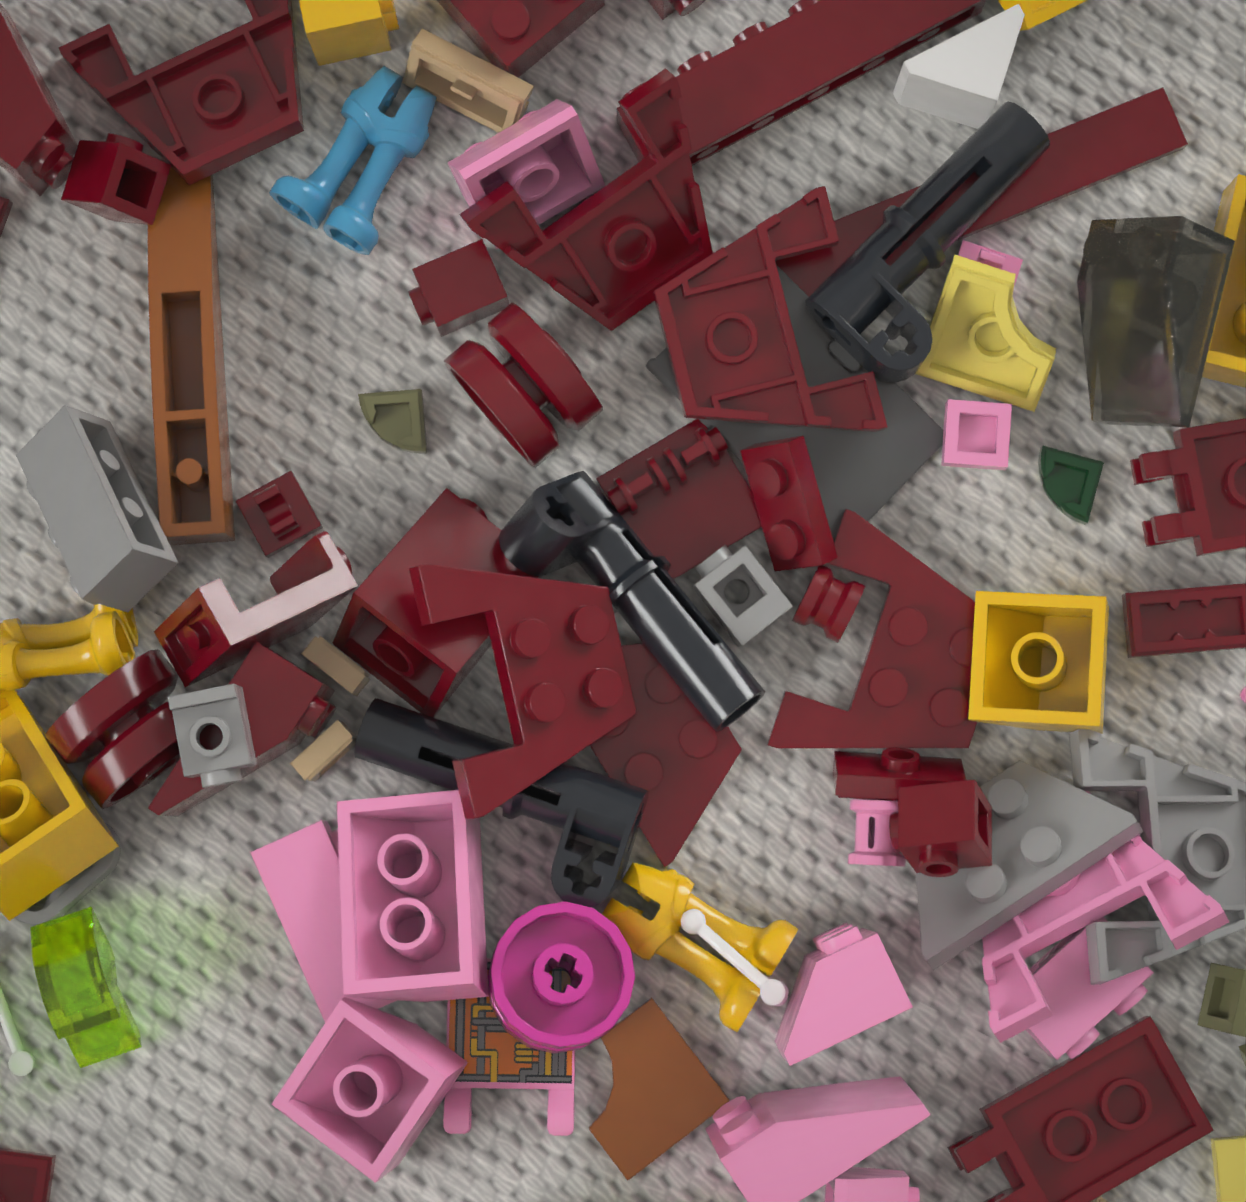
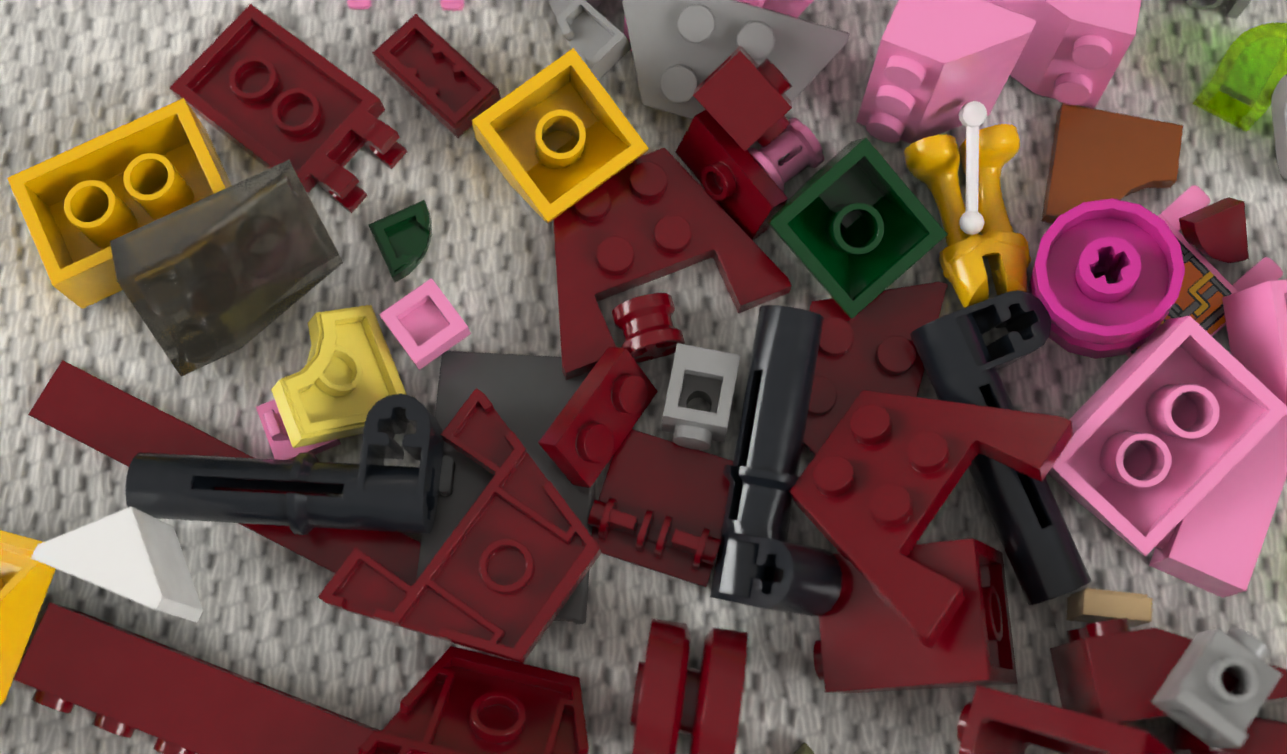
camera: 130 degrees left, 10 degrees down
(336, 665) = (1037, 658): tan tile -> none
(520, 1114) = (1218, 230): none -> dark red tile
(770, 828) = (856, 226): none -> dark green slope

